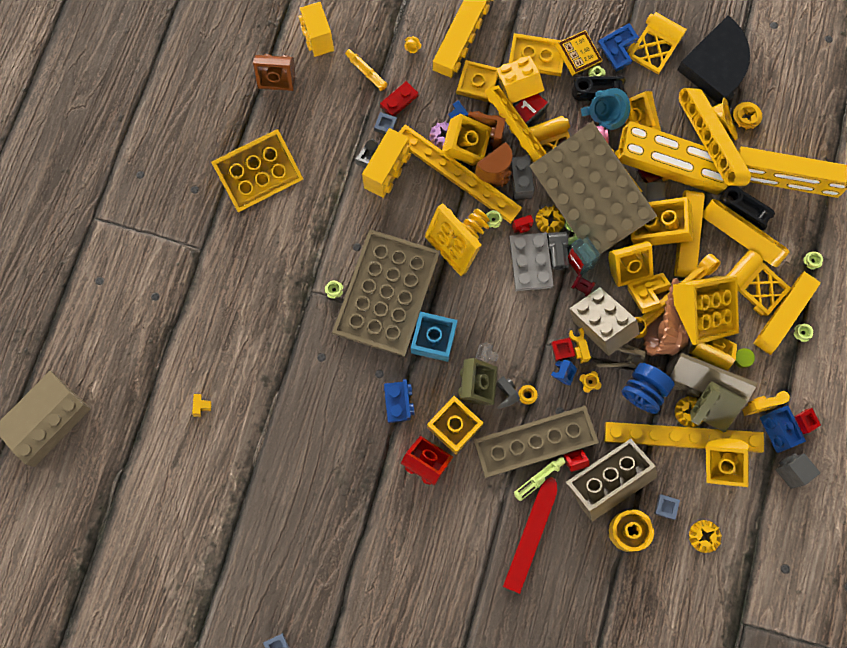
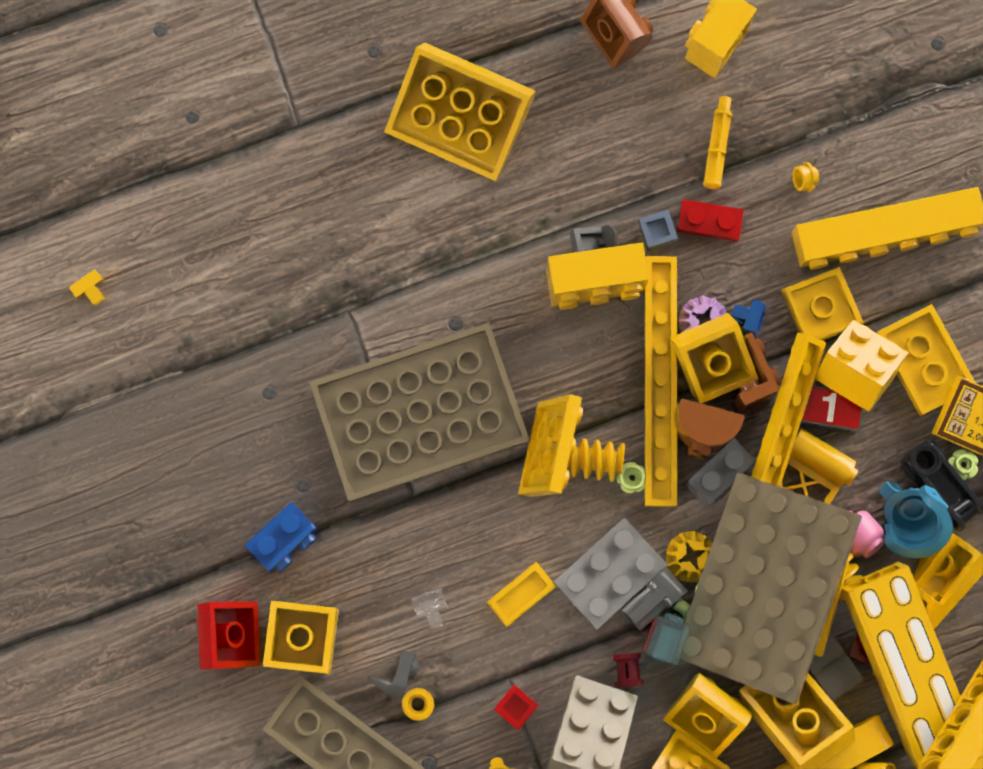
camera: 50 degrees right, 5 degrees up
(329, 289) = (368, 331): yellowish green plate -> none
(434, 336) = (401, 521): dark azure brick -> none
(478, 382) = (382, 626): olive brick -> none
(510, 309) = (521, 594): none -> yellow tile
(522, 224) = (653, 524): red plate -> none
(566, 372) = (485, 734): blue tile -> none
(581, 349) = (531, 734): yellow plate -> none

